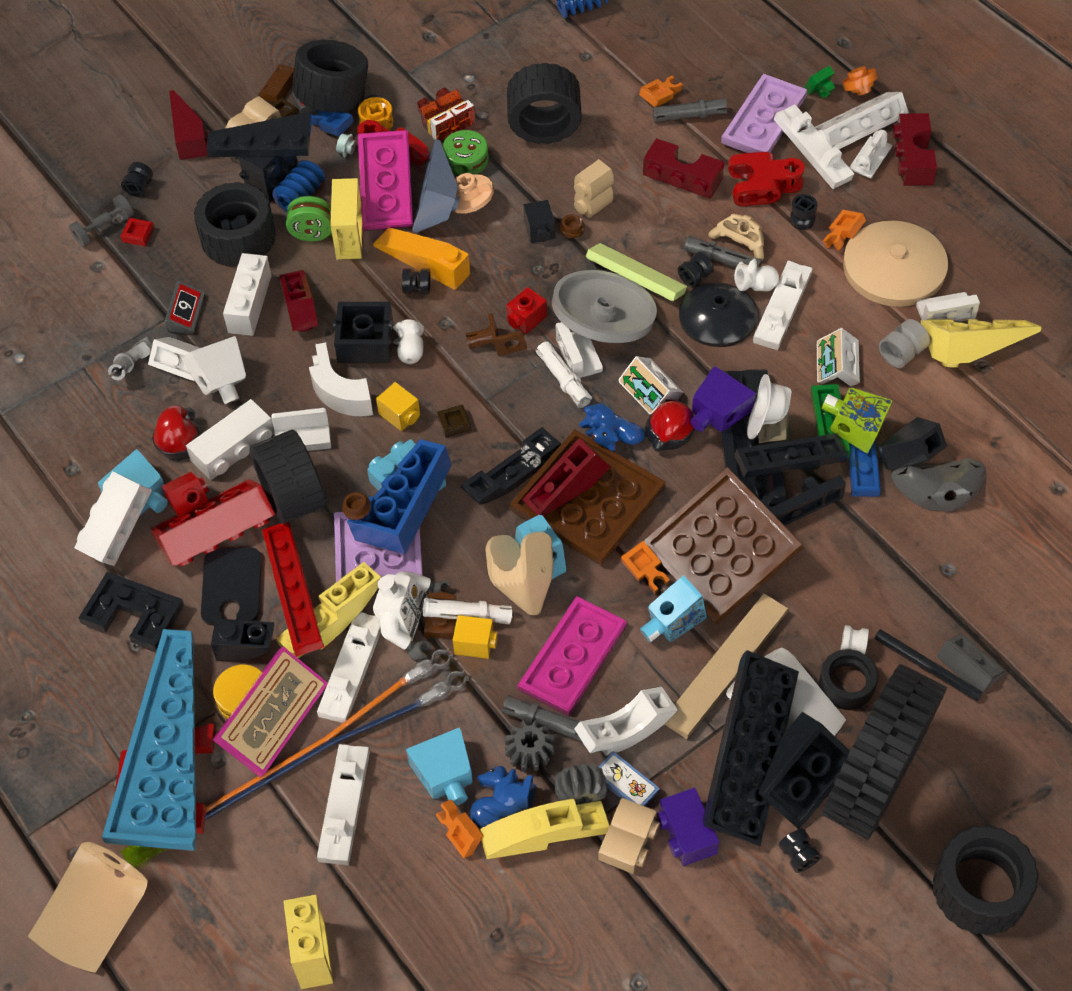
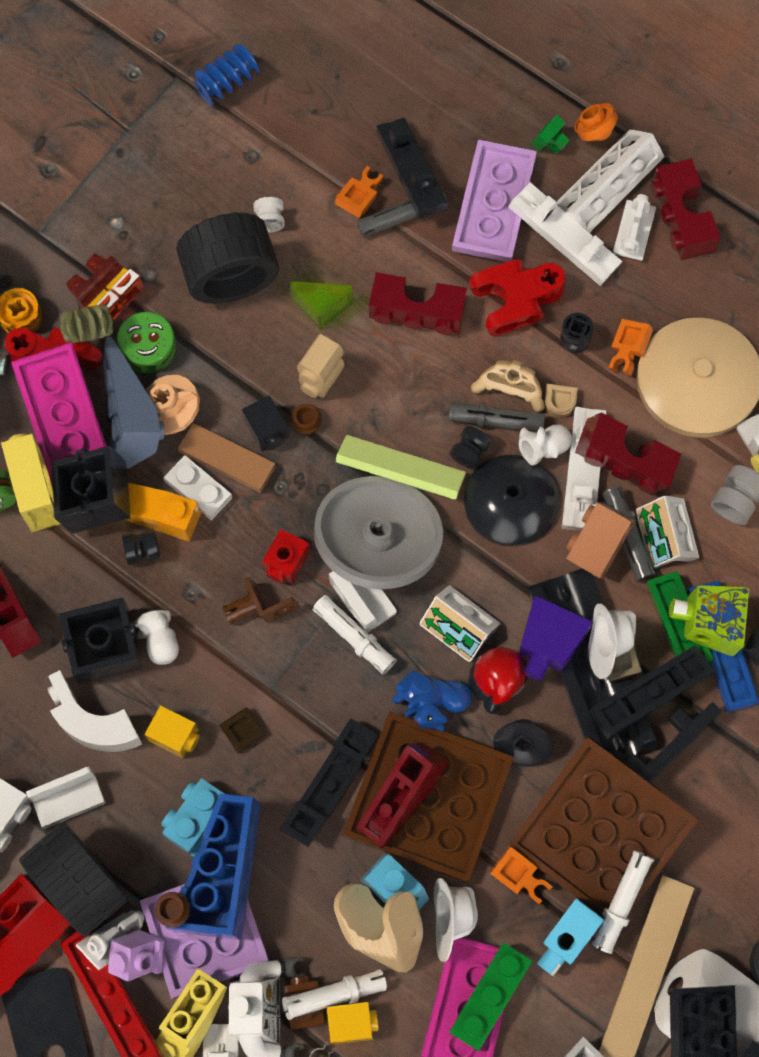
camera: 15 degrees left, 15 degrees up
(305, 532) = (97, 945): none -> white hinge
(317, 544) = (135, 955): none -> lavender brick
(389, 229) = (90, 489): none -> black brick
(423, 122) = (86, 323): none -> olive gear
(480, 259) = (197, 485): none -> white plate
(502, 240) = (226, 457): none -> medium nougat tile
(584, 577) = (455, 915): none -> white piece
(588, 90) = (270, 211): none -> white wheel
(594, 644) = (490, 997): none -> green plate
(610, 150) = (321, 301): none -> clear neon green slope
(676, 485) = (524, 741): none -> black piece
(705, 81) = (412, 168): none -> black hinge
(720, 599) = (622, 902): none -> white pin
(777, 255) = (560, 400): none -> tan tile
(780, 346) = (599, 539): none -> nougat brick
(802, 284) = (604, 446): none -> dark red arch
(805, 343) = (633, 543): none -> dark grey pin

